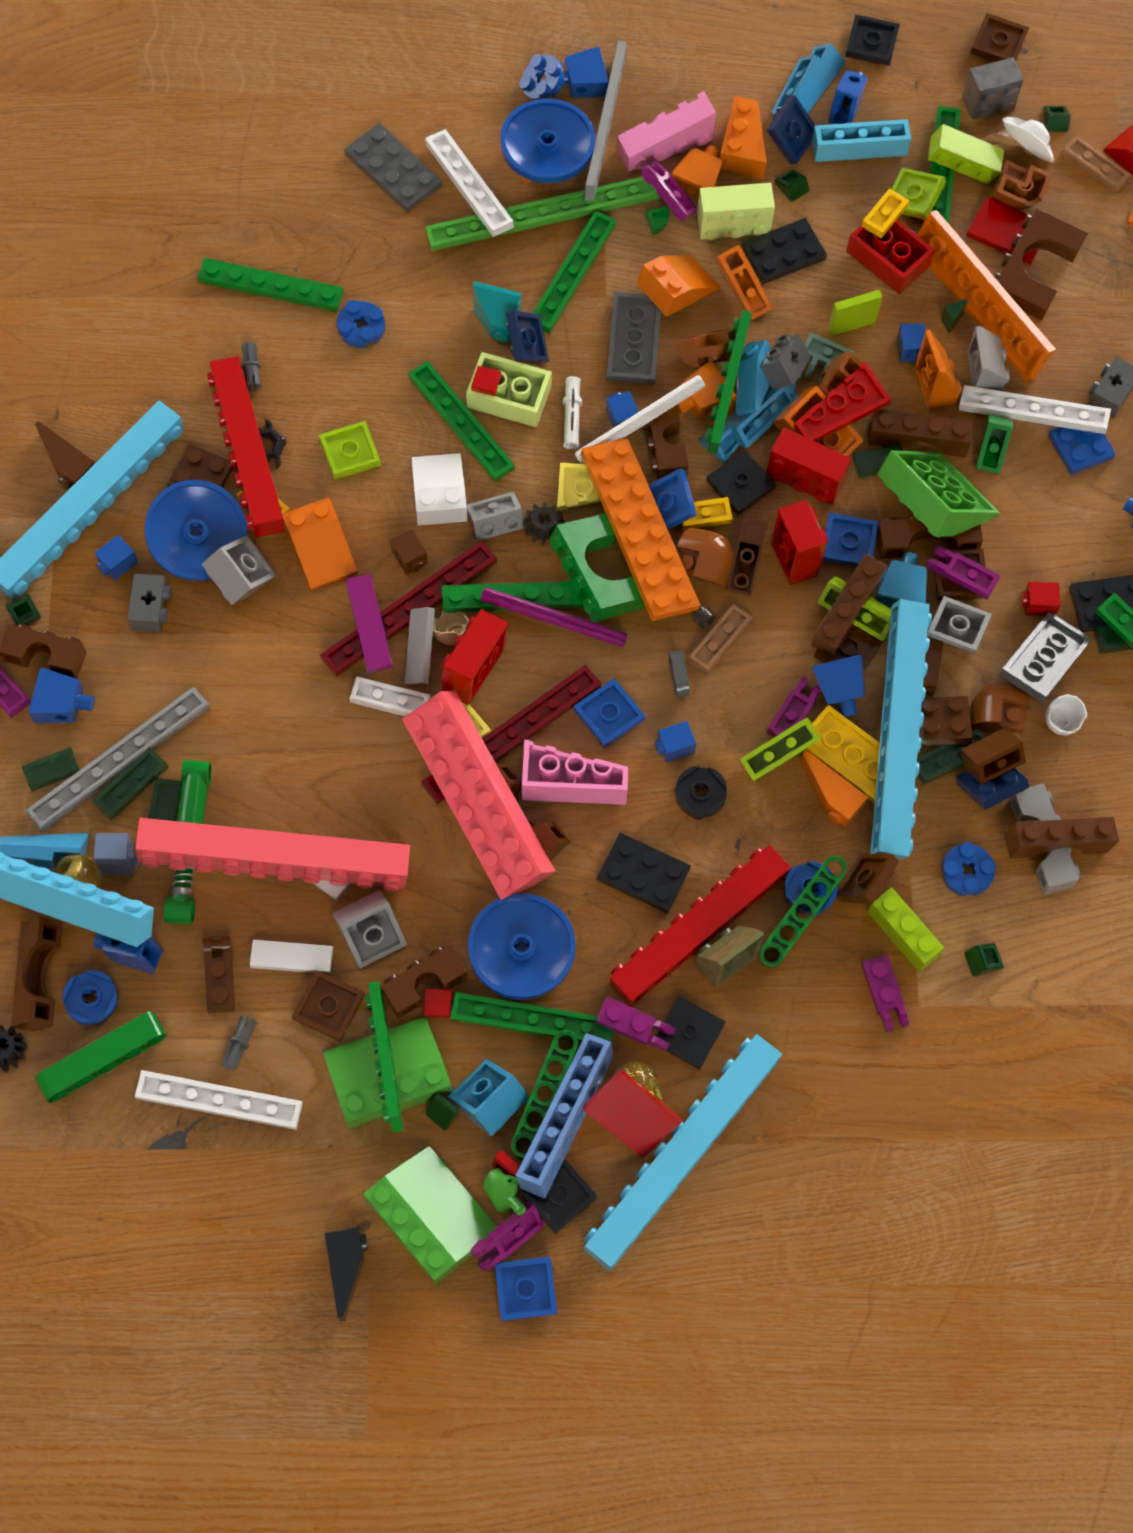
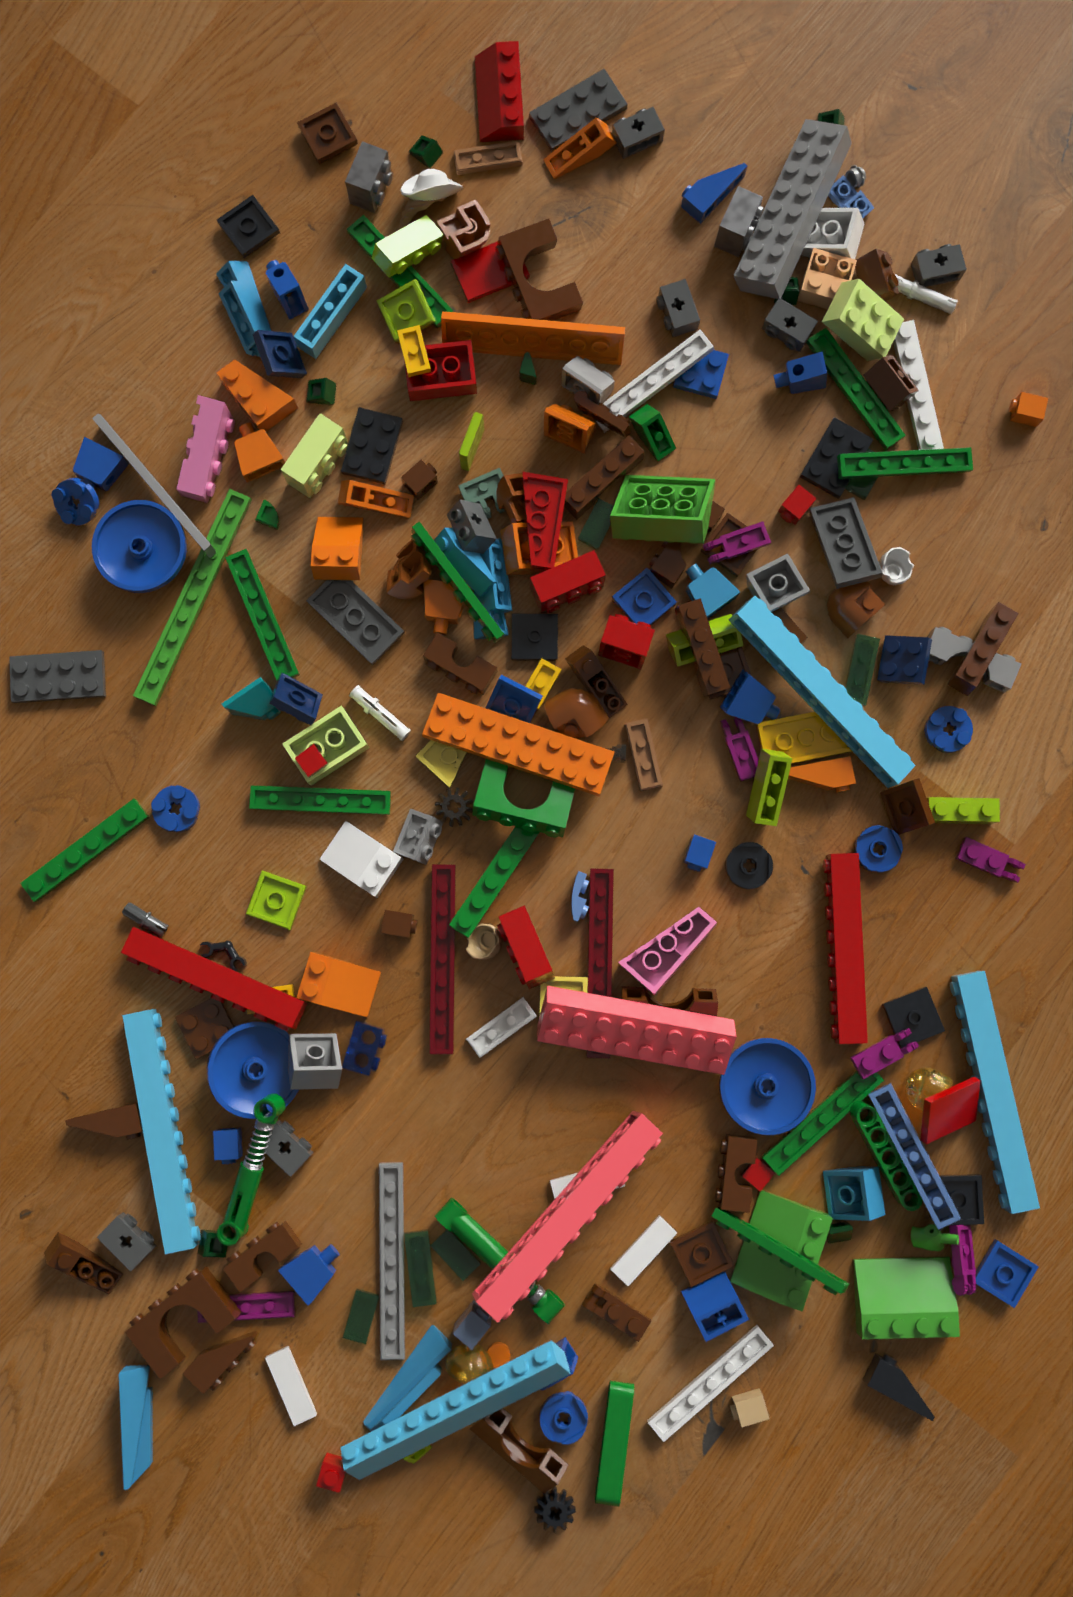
camera: 50 degrees left, 15 degrees up
(52, 610) = (250, 1172): none -> green piece
(222, 1149) = (749, 1408): none -> tan brick
(238, 1043) = (679, 1337): dark grey axle -> none
(279, 596) = (359, 1046): none -> clear blue brick
(290, 1049) = (715, 1306): none -> blue slope
(369, 623) = (434, 1000): magenta tile -> none
(369, 928) = (667, 1181): light grey slope -> none
(419, 646) = (482, 977): light grey tile -> none
(469, 183) = (123, 632): white plate -> none
(505, 1163) = (913, 1221): red tile -> none
(546, 677) = (578, 905): none -> medium blue slope
(553, 617) = (536, 863): magenta axle -> none
(609, 713) = (639, 881): blue plate -> none
(620, 407) = (410, 676): blue brick -> none
(643, 872) = (775, 953): black plate -> none
(648, 413) = (432, 668): white axle -> none
(669, 190) = (254, 489): magenta hinge -> none
(679, 674) = (649, 807): dark grey beam -> none
(728, 954) = (888, 948): olive slope -> none
(789, 302) = (420, 479): none -> reddish brown brick
(812, 902) = (904, 881): green beam -> none
(910, 341) = (526, 420): blue brick -> none
(945, 721) = (835, 650): reddish brown plate -> none
(970, 389) = (602, 414): none -> reddish brown plate
(983, 959) = (1018, 773): dark green slope -> none
(993, 755) = (891, 644): reddish brown brick -> none

